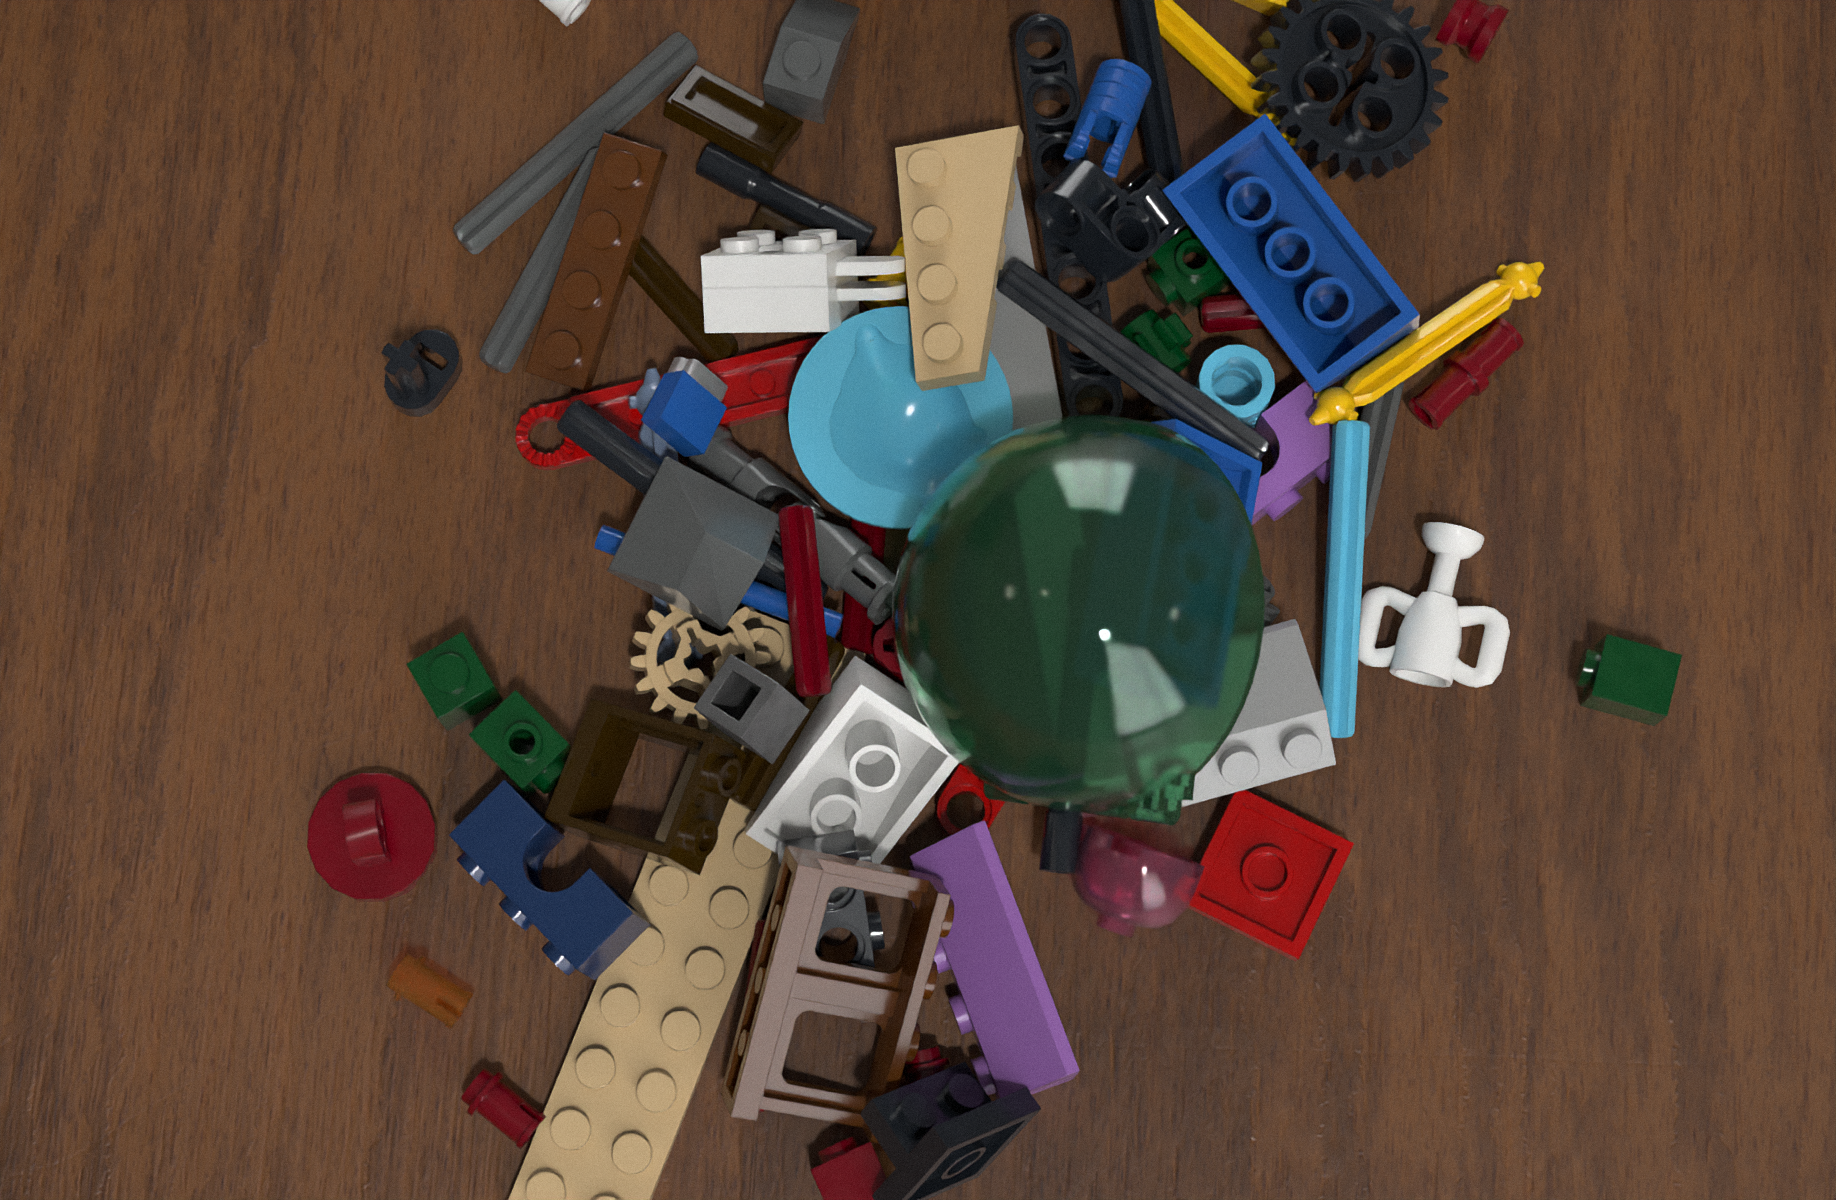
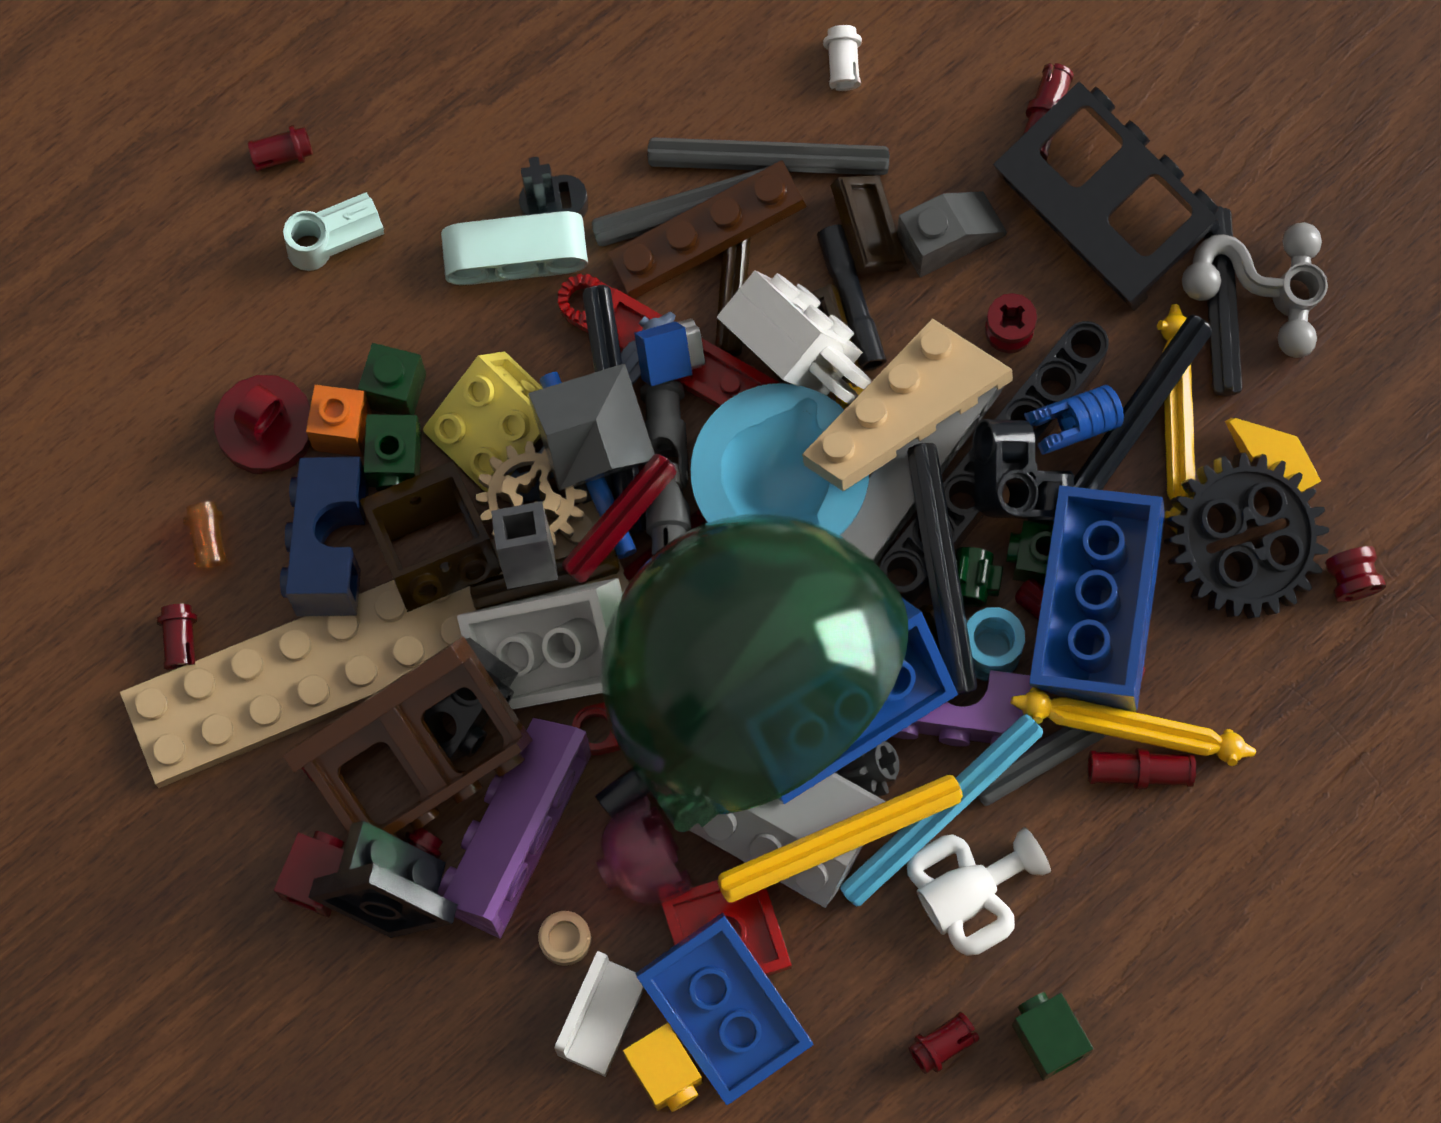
camera: 50 degrees right, 5 degrees down
(114, 569) = (280, 148): none -> dark red pin
(248, 593) = (335, 227): none -> light aqua piece
(434, 450) = (514, 248): none -> light aqua beam
(443, 766) = (338, 420): none -> orange brick
(578, 628) = (486, 415): none -> light yellow bracket
(952, 102) = (1005, 333): none -> dark red wheel
(1130, 1020) = (564, 938): none -> tan tile
(1235, 1054) = (599, 1015): none -> white panel
(1298, 691) = (839, 838): none -> yellow axle
(1339, 1044) = (664, 1069): none -> yellow brick
(1340, 939) = (724, 1008): none -> blue plate
(1545, 779) = (943, 1043): none -> dark red pin

